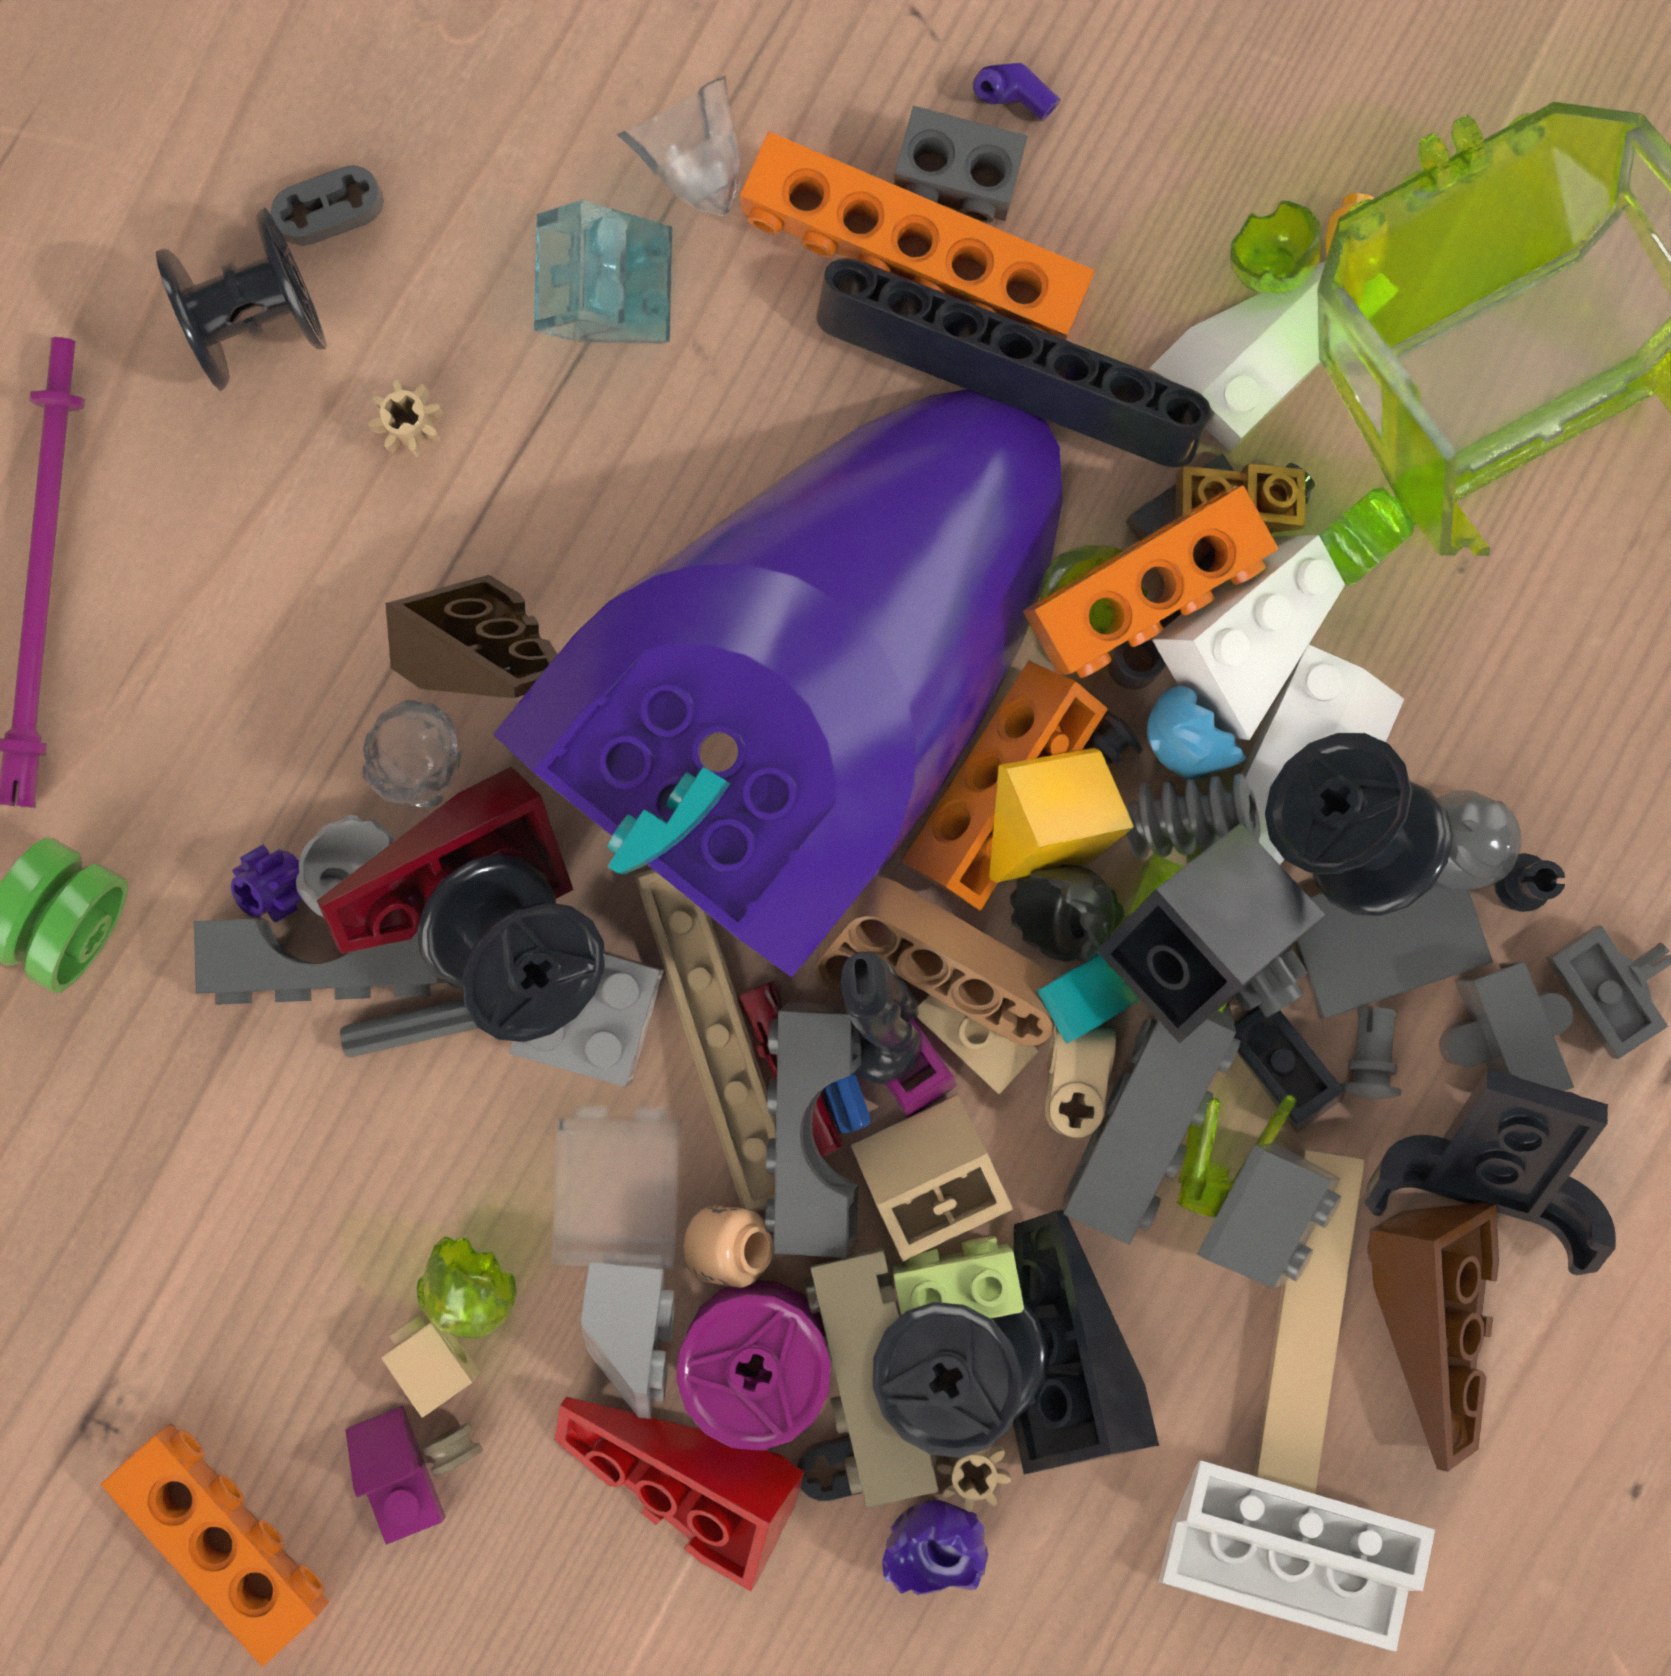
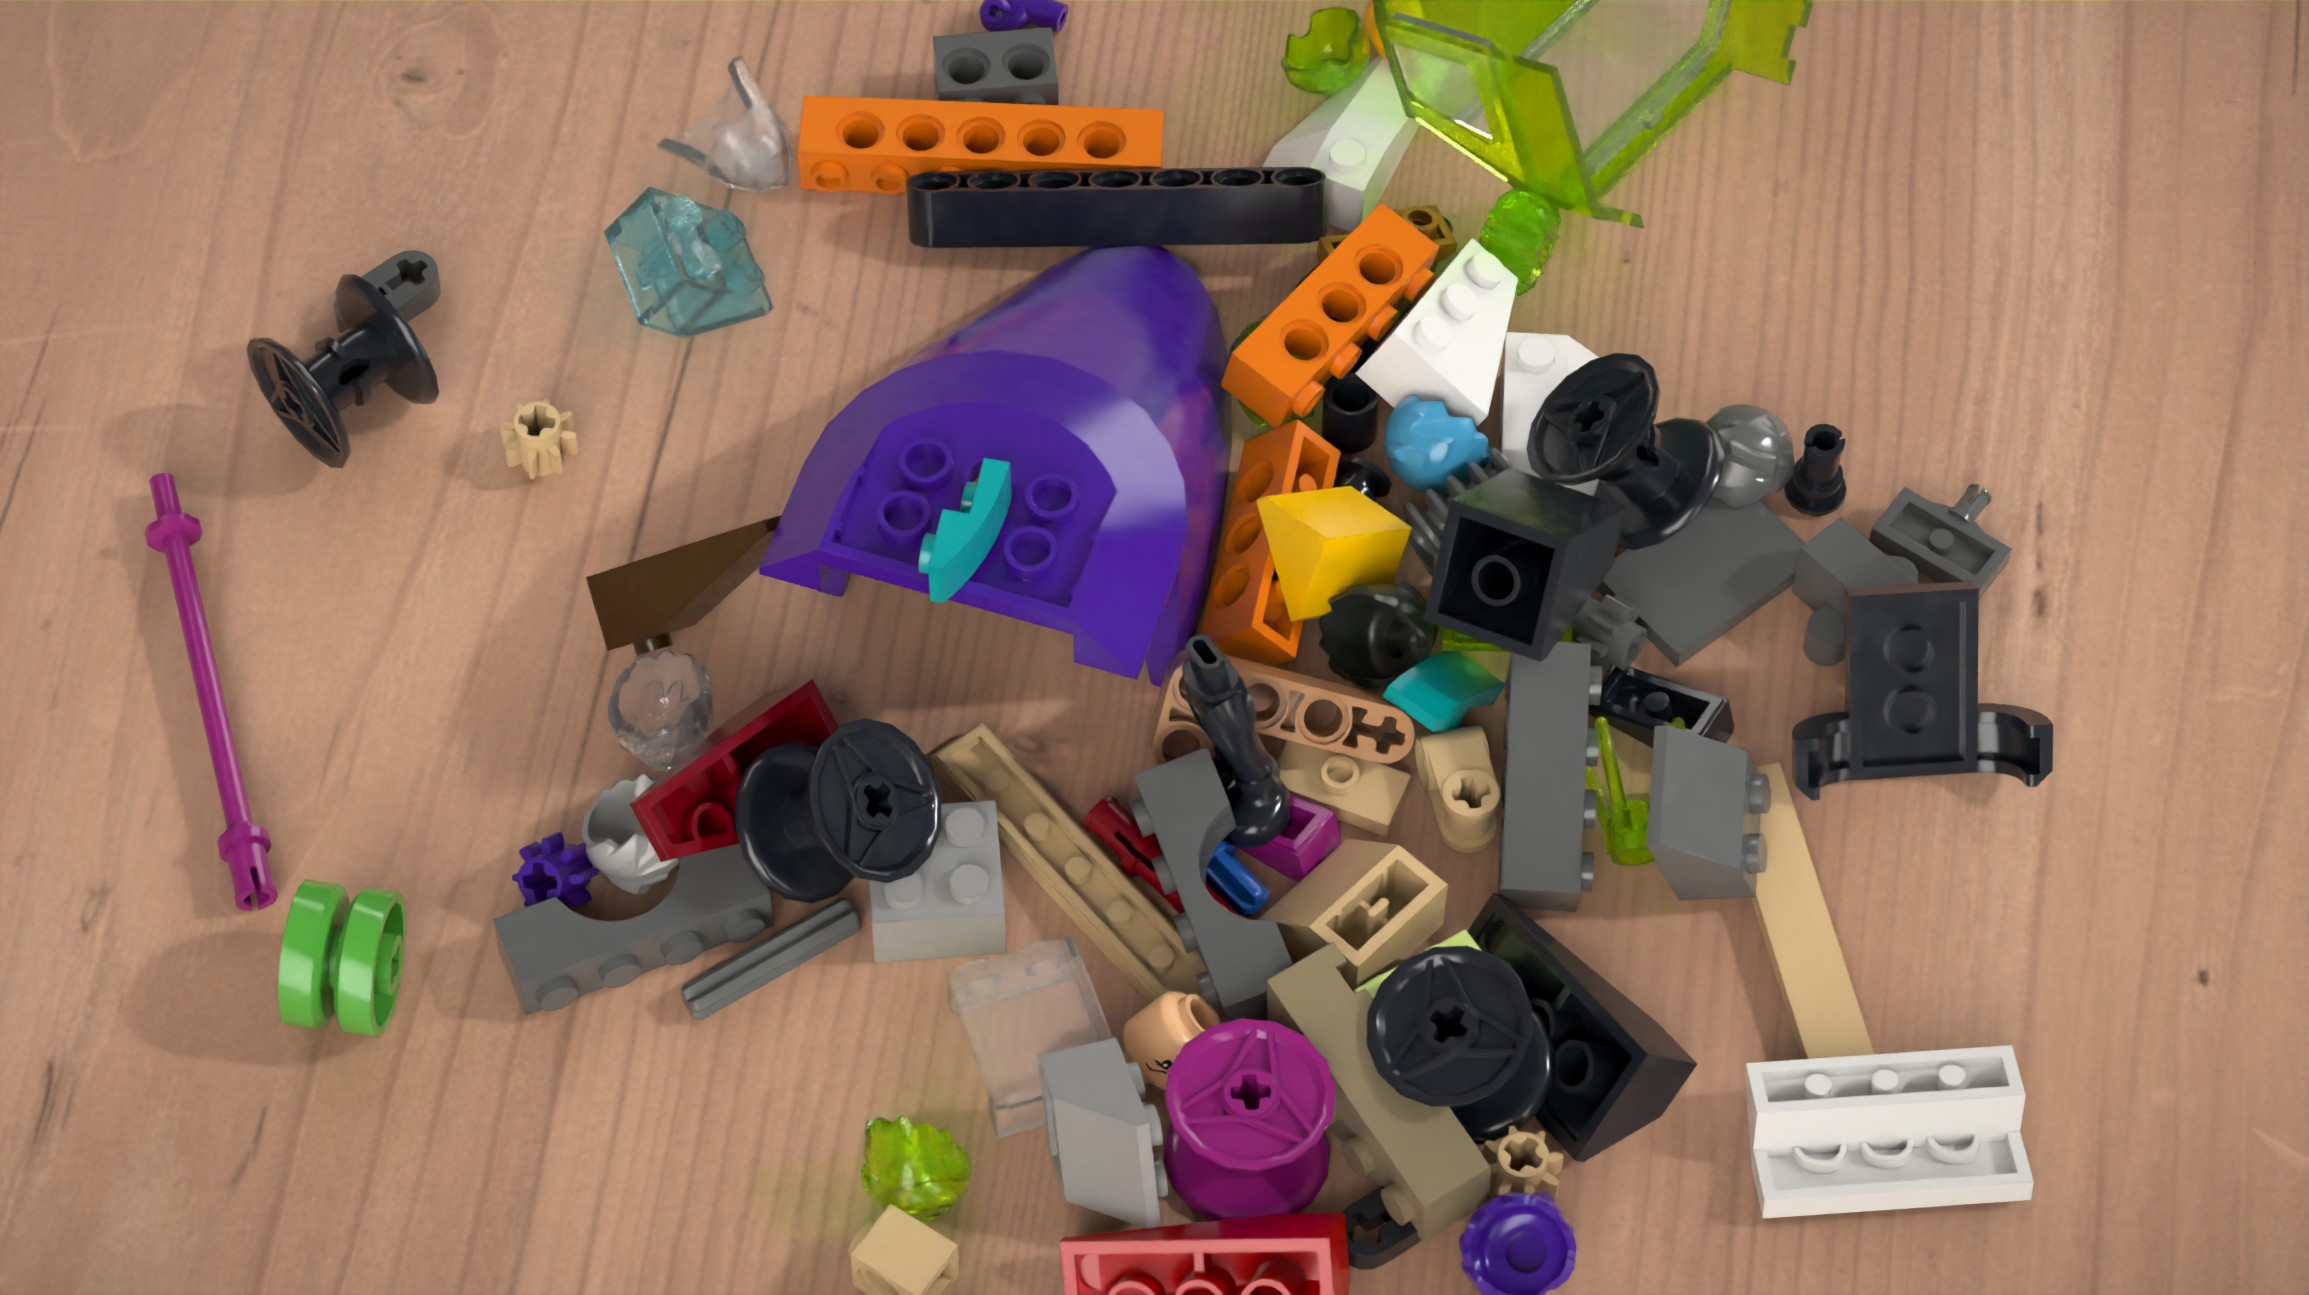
camera: 25 degrees left, 30 degrees down
(1373, 1055) = (1746, 679): dark grey pin -> none
(1431, 1291) = (1901, 839): reddish brown wedge -> none

